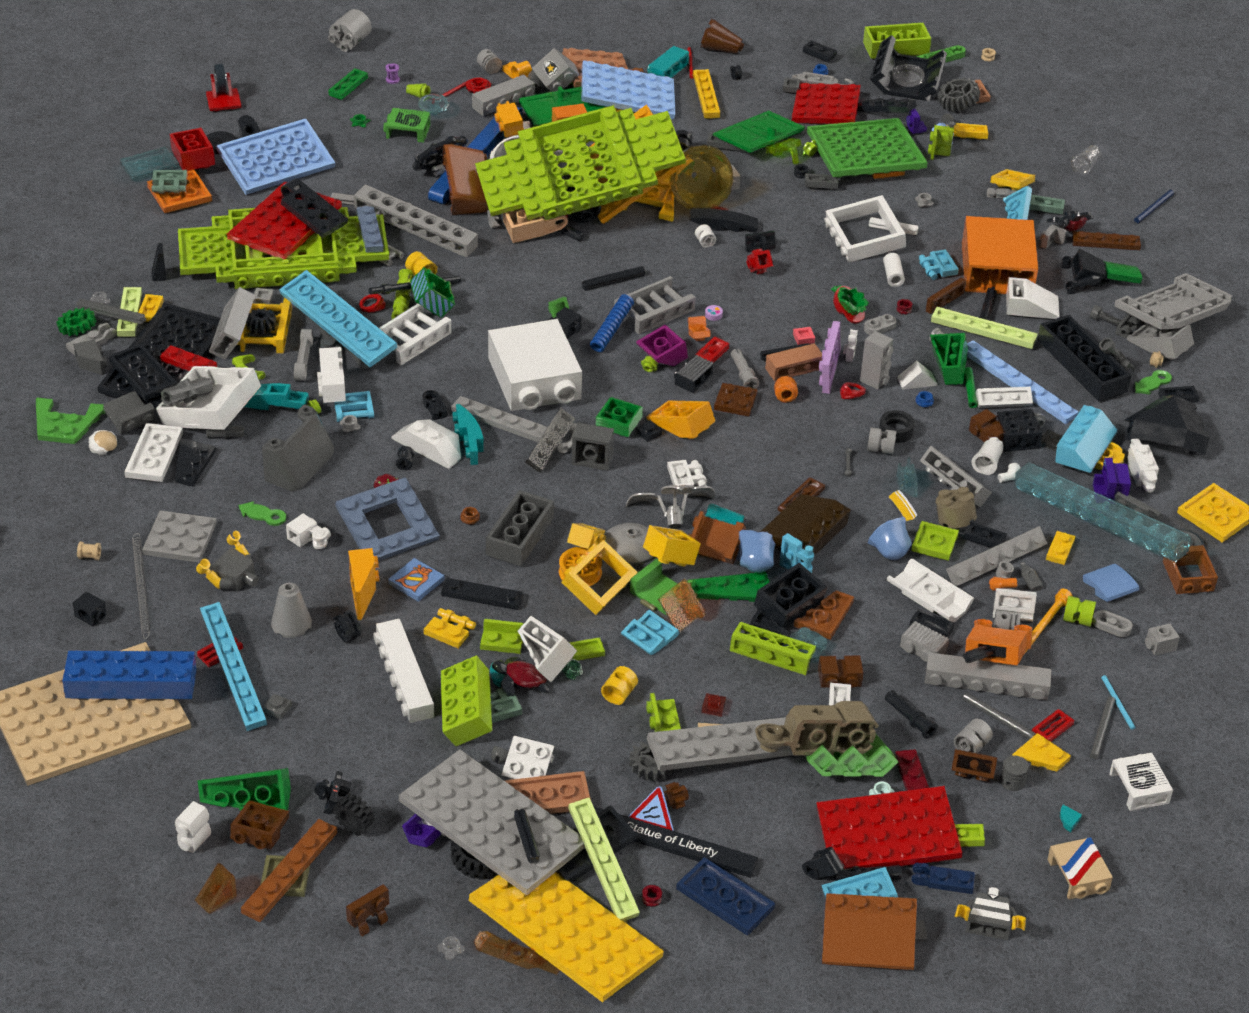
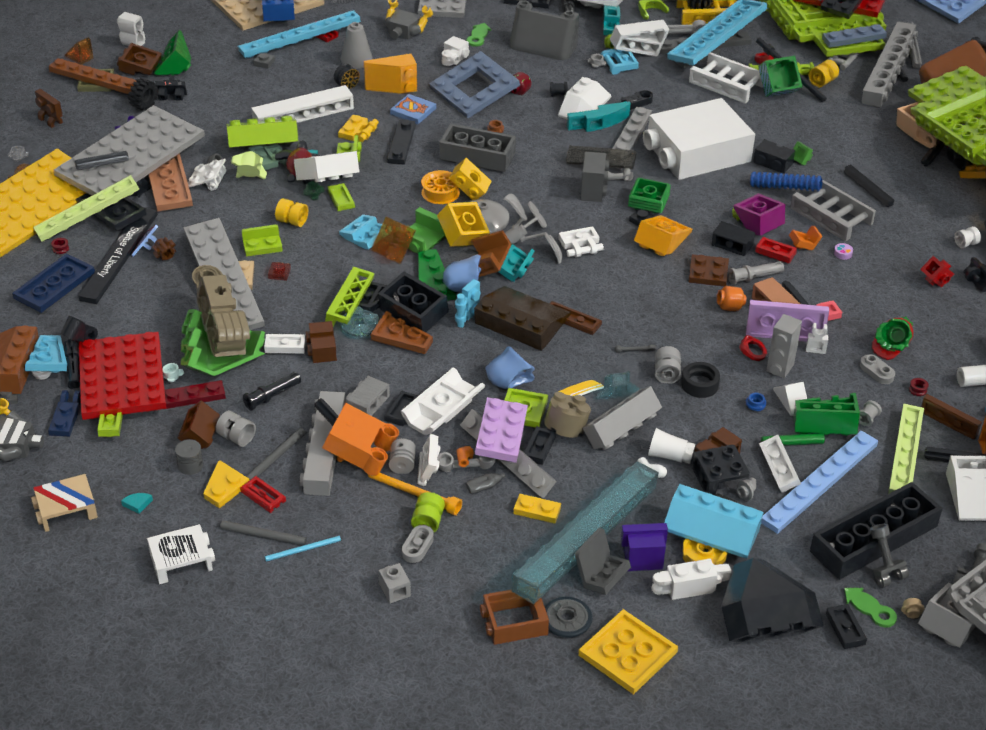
camera: 85 degrees right, 0 degrees up
(528, 713) = (249, 165): none -> yellowish green piece
(583, 591) = (410, 204): yellow window -> none
(981, 548) = (501, 430): none -> lavender plate
(1111, 582) = (484, 546): medium blue slope -> none

